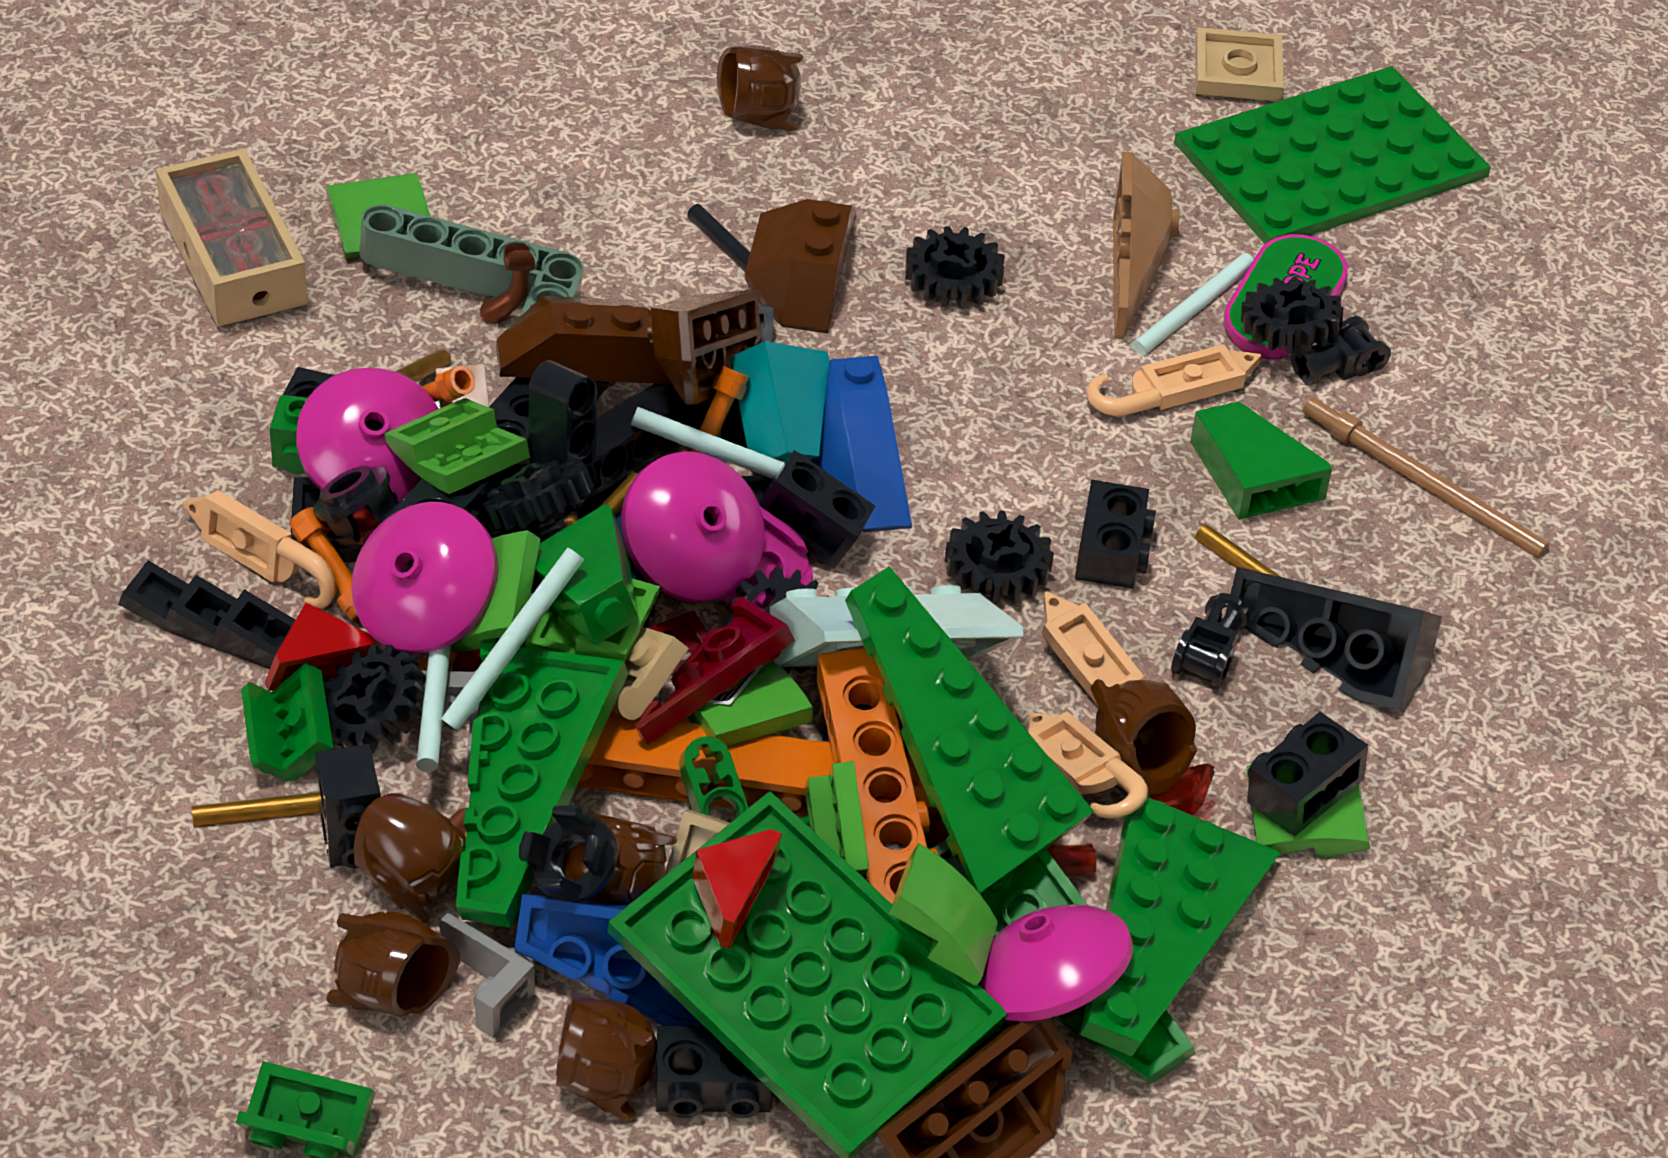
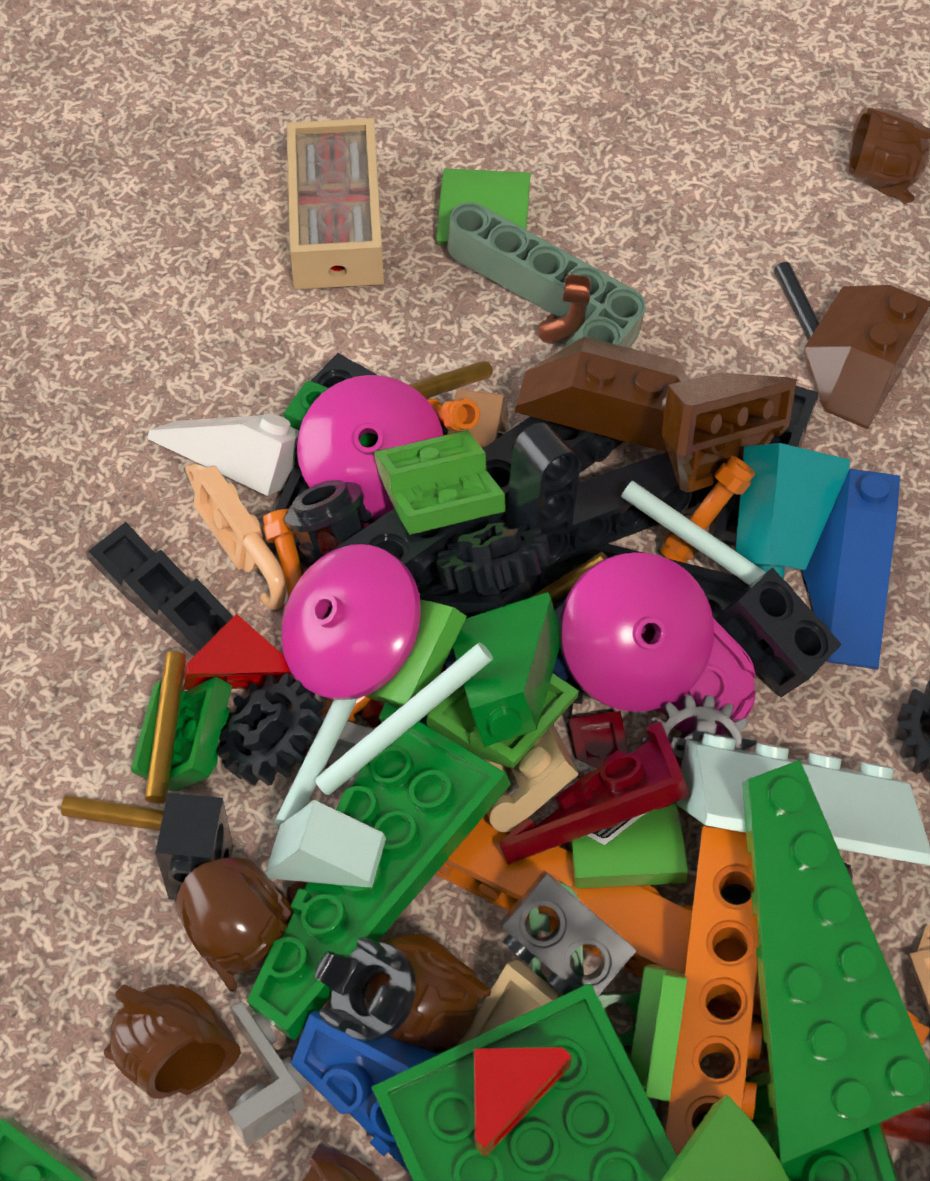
camera: 25 degrees right, 10 degrees up
(248, 470) = (247, 448): none -> white slope
(270, 720) = (165, 727): none -> pearl gold bar
(478, 763) = (326, 848): none -> light aqua slope
(733, 761) = (574, 928): none -> brick

